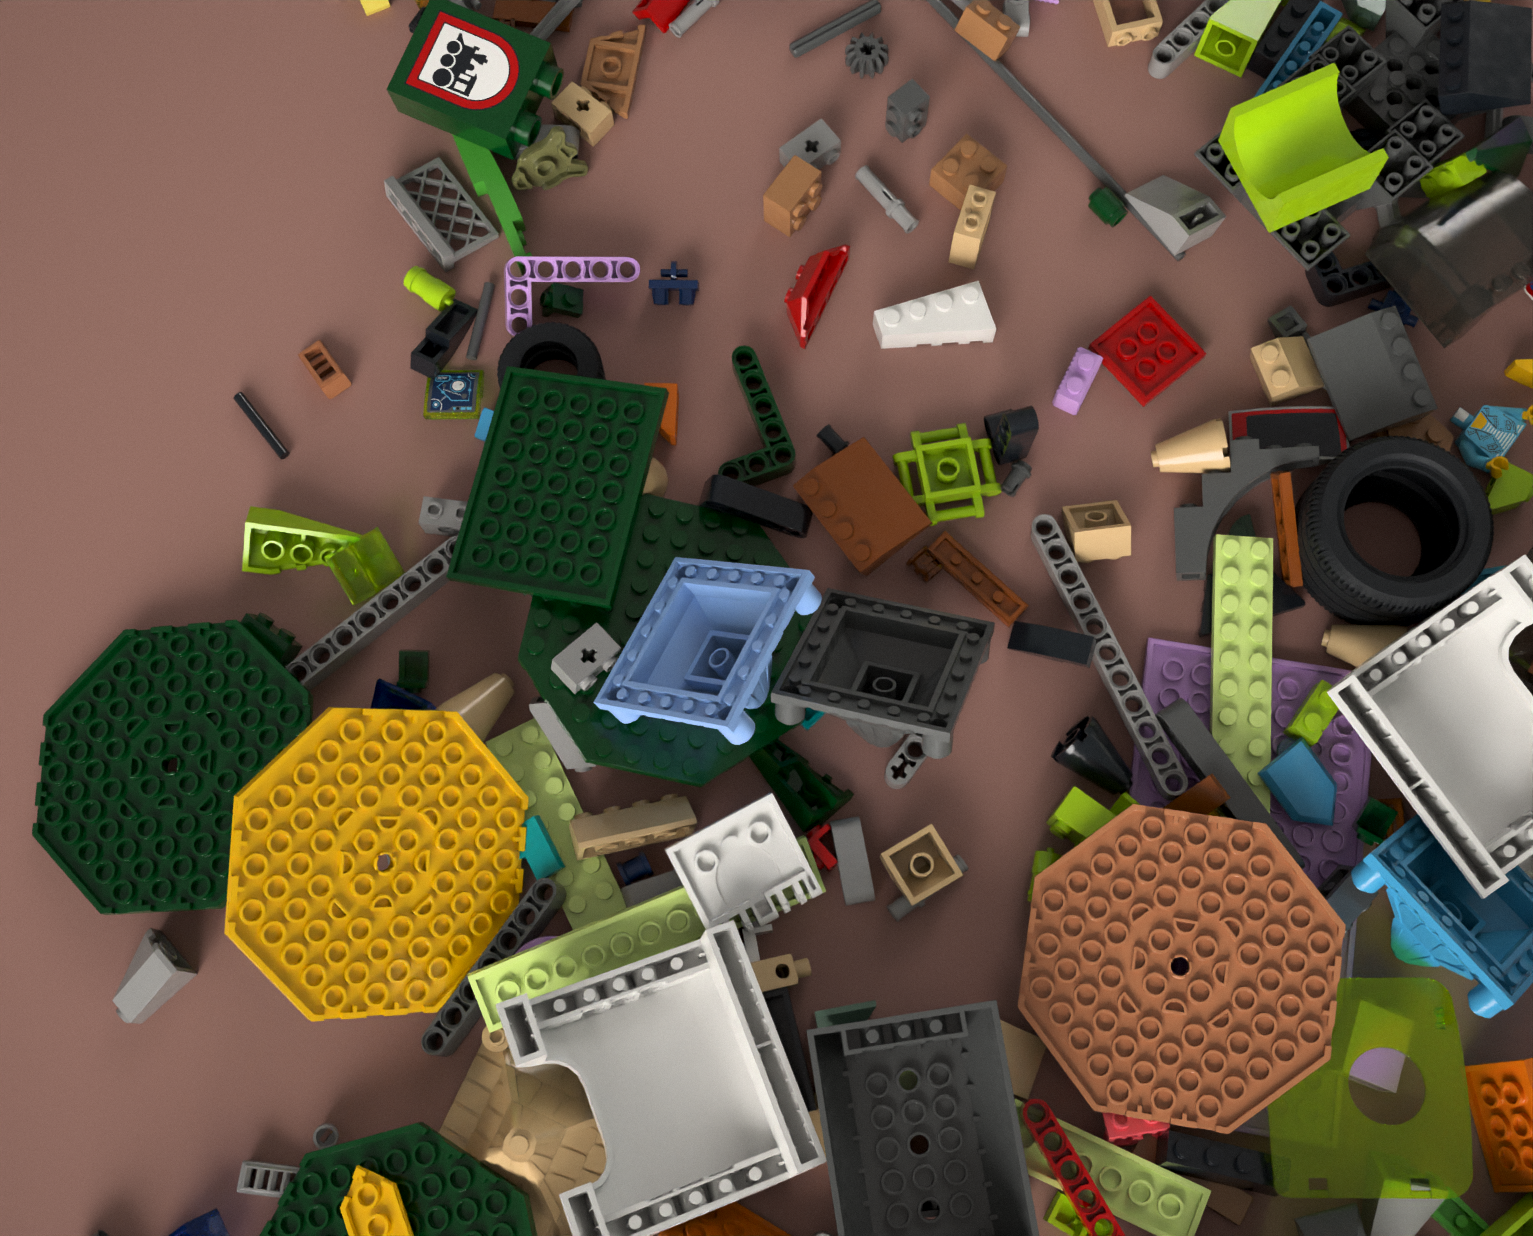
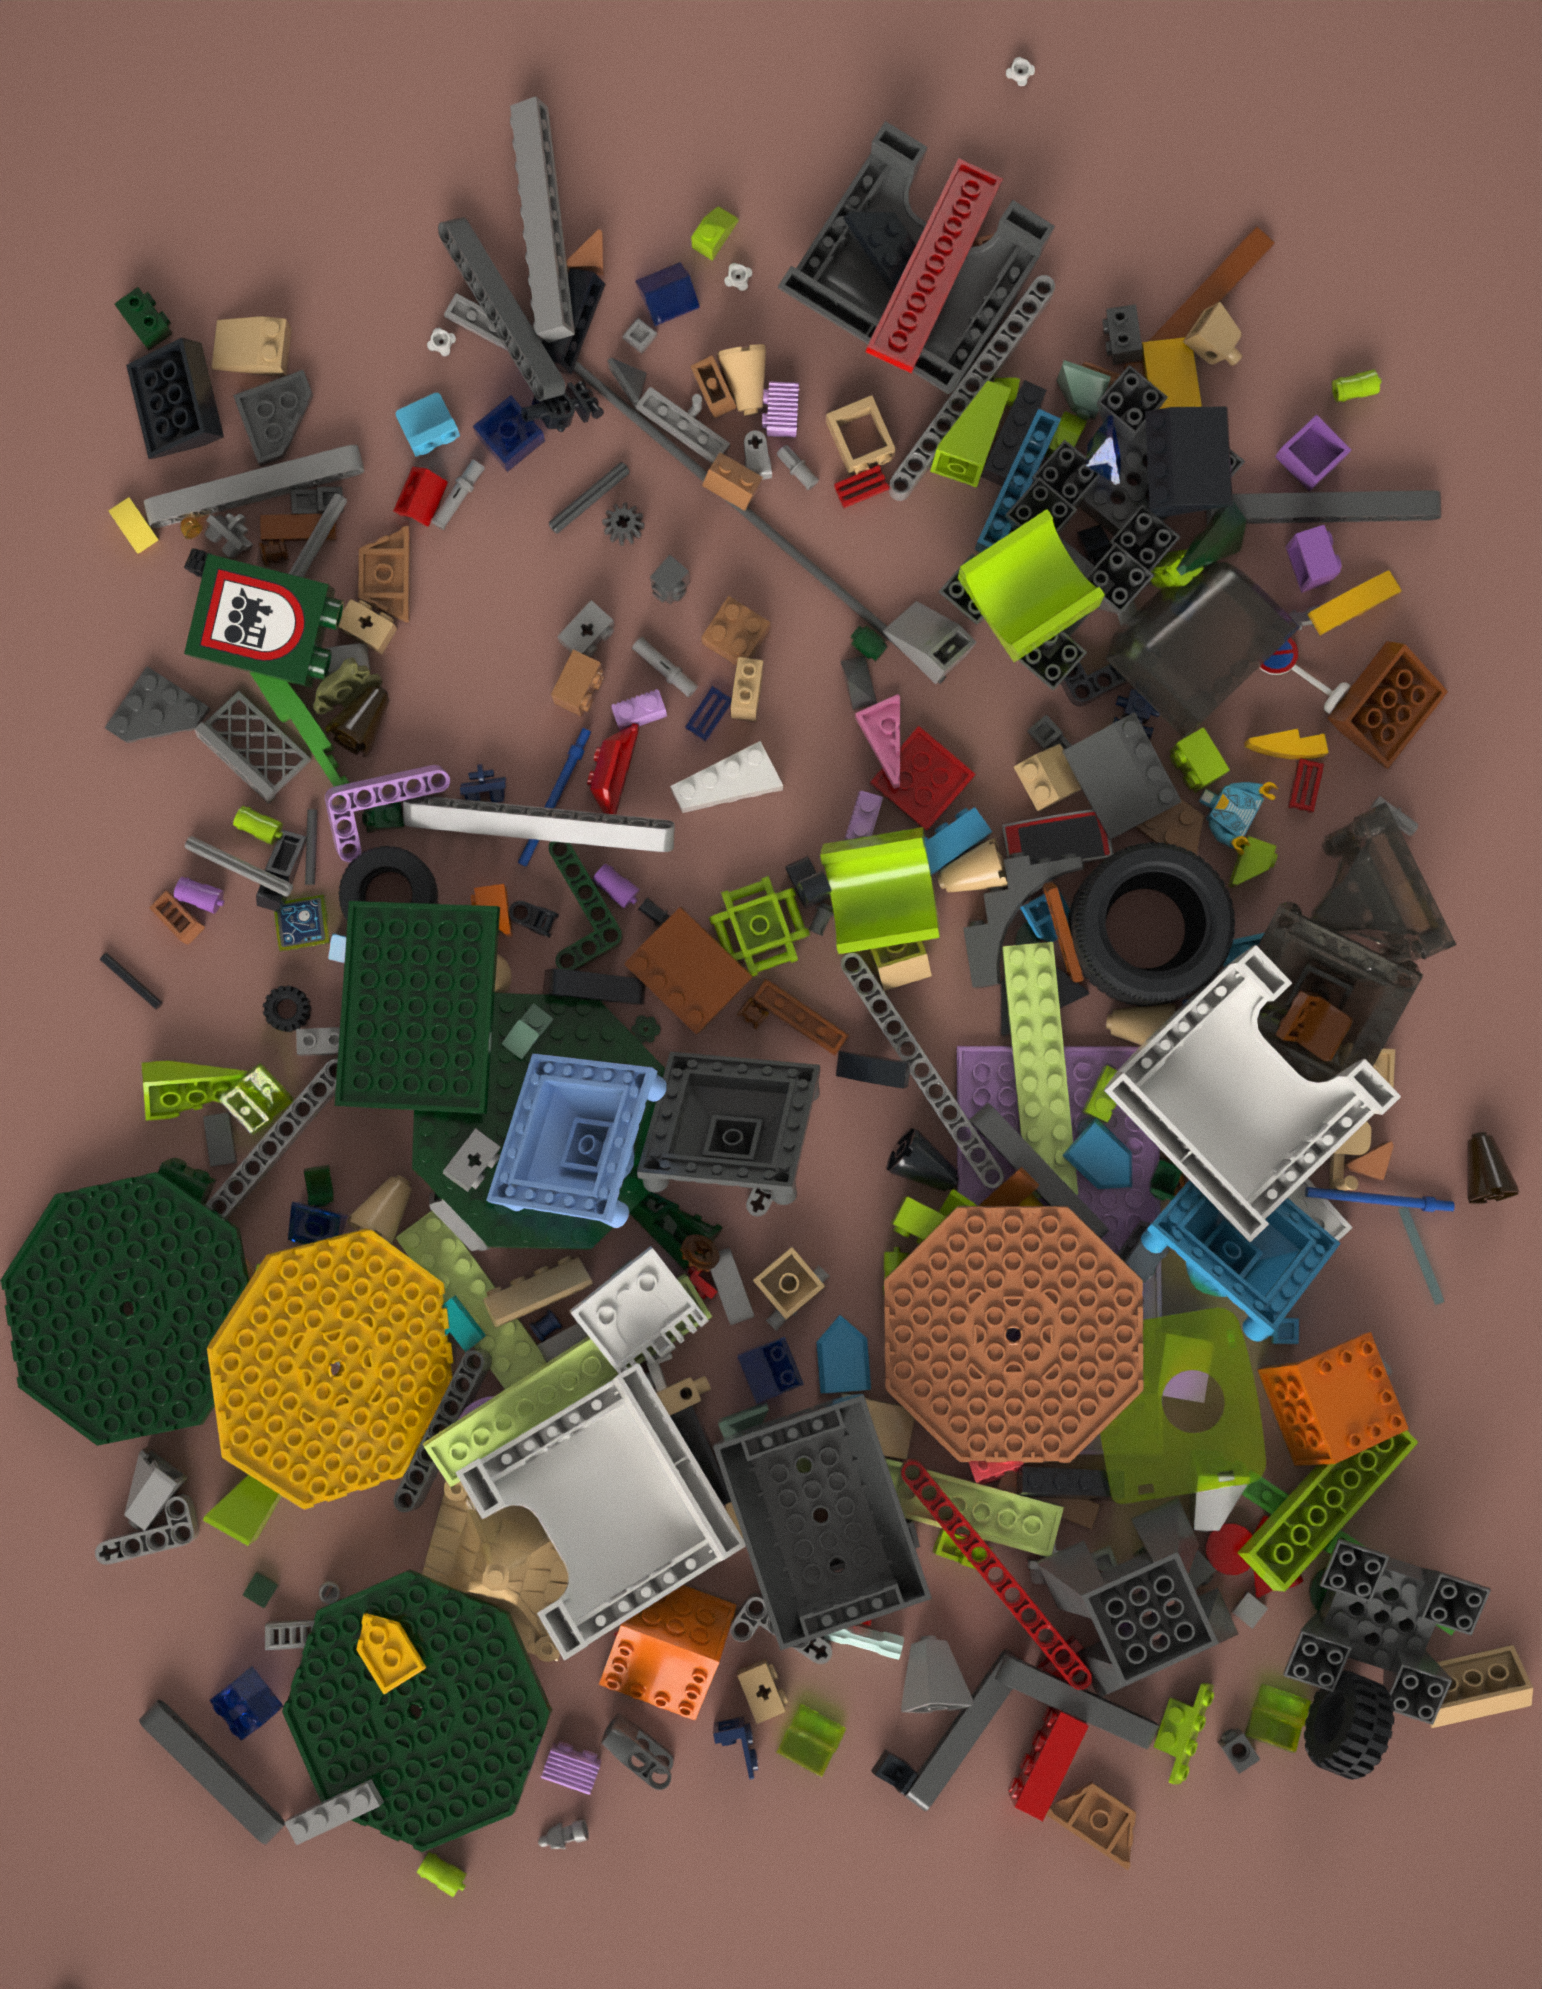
camera: 20 degrees left, 10 degrees up
(133, 1033) = (147, 1538): none -> light grey beam
(248, 1119) = (260, 1590): none -> clear green tile
(250, 1018) = (244, 1510): none -> lime slope
(317, 605) = (220, 1139): none -> dark grey tile
(349, 163) = (155, 710): none -> dark grey plate
(353, 348) = (200, 895): none -> medium lavender piece
(400, 323) = (239, 866): none -> light grey axle
(413, 464) = (274, 1000): none -> black tyre
(556, 202) = (360, 721): none -> dark brown cone
(673, 537) = (527, 1031): none -> sand green slope
(706, 429) = (535, 918): none -> black piece
(728, 328) = (539, 823): none -> beam
(777, 270) = (575, 753): none -> blue bar
(797, 408) = (618, 888): none -> medium lavender piece
(802, 556) = (653, 1029): none -> dark green plant
(828, 806) = (701, 1245): none -> reddish brown gear
(858, 232) = (639, 710): none -> lavender brick
(884, 963) = (770, 1369): none -> clear blue slope
(911, 268) = (697, 731): none -> clear blue tile
(969, 966) = (843, 1359): none -> dark azure tile
(1056, 29) = (797, 467): none -> light grey axle
(1090, 246) = (858, 682): none -> dark grey slope
(1090, 446) = (881, 890): none -> lime piece
(1110, 295) = (882, 729): none -> bright pink wing
(1118, 54) = (856, 478): none -> red tile
(1164, 420) = (956, 838): none -> dark azure brick
(1261, 513) = (1040, 919): none -> dark azure slope
(1390, 41) = (1104, 452): none -> clear blue slope
(1457, 374) = (1198, 760): none -> lime brick
(1498, 1028) = (1286, 1332): none -> dark azure plate

